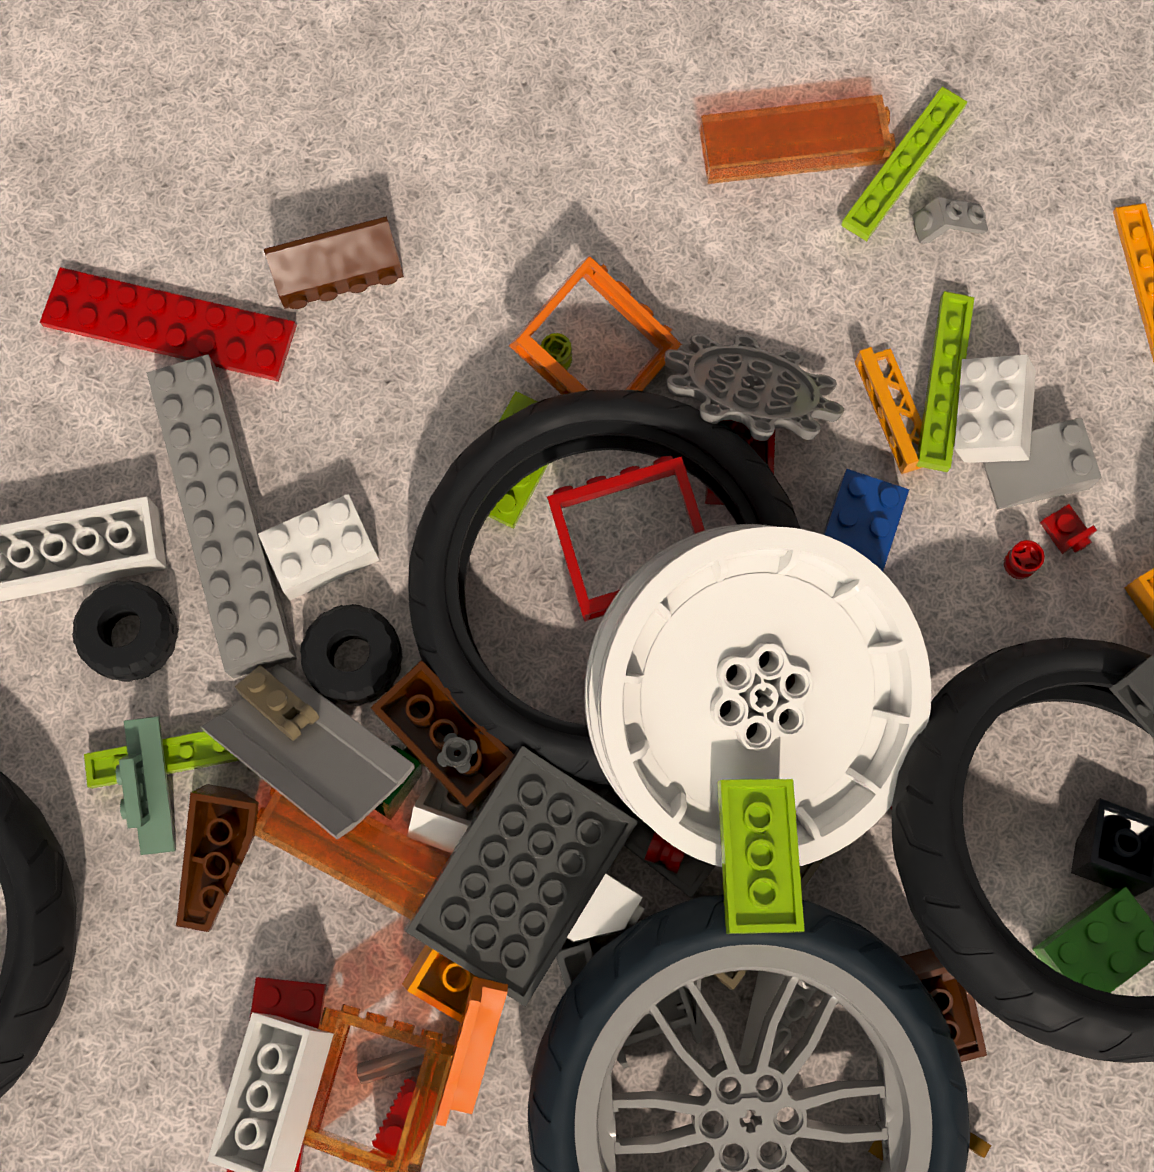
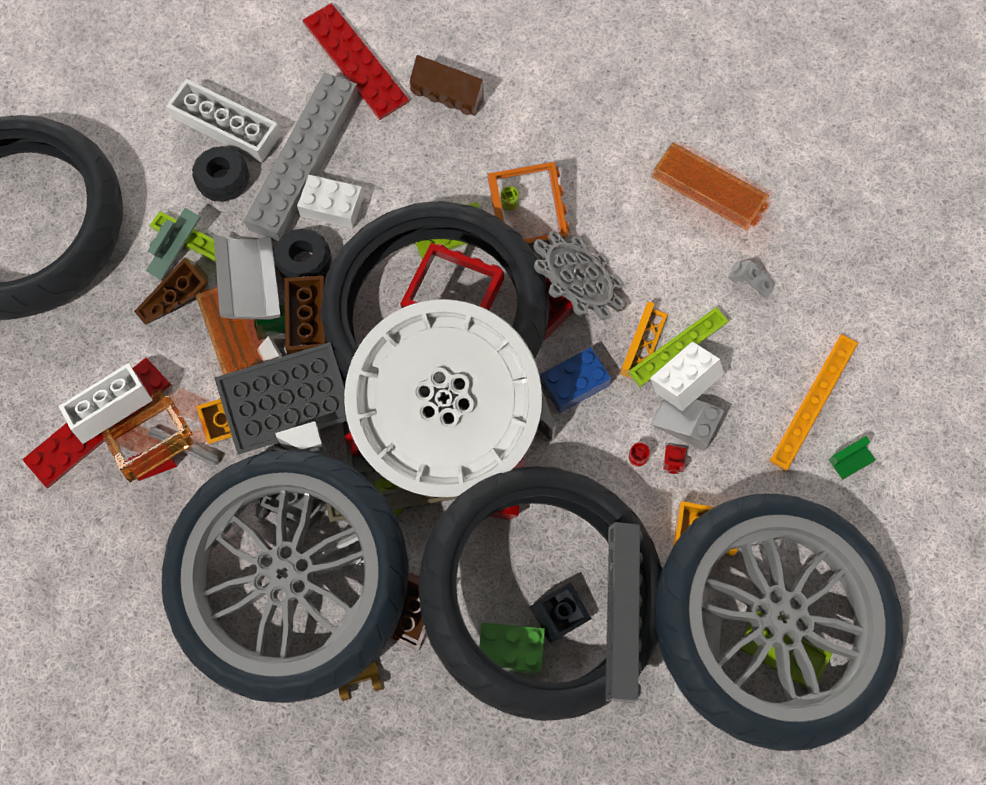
camera: 40 degrees right, 5 degrees down
(276, 702) = (252, 249): dark tan plate -> none
(454, 743) = (301, 318): dark grey plate -> none
(472, 1047) = (200, 452): orange fence -> none
(760, 856) = (379, 459): lime plate -> none
(904, 164) = (754, 236): lime plate -> none

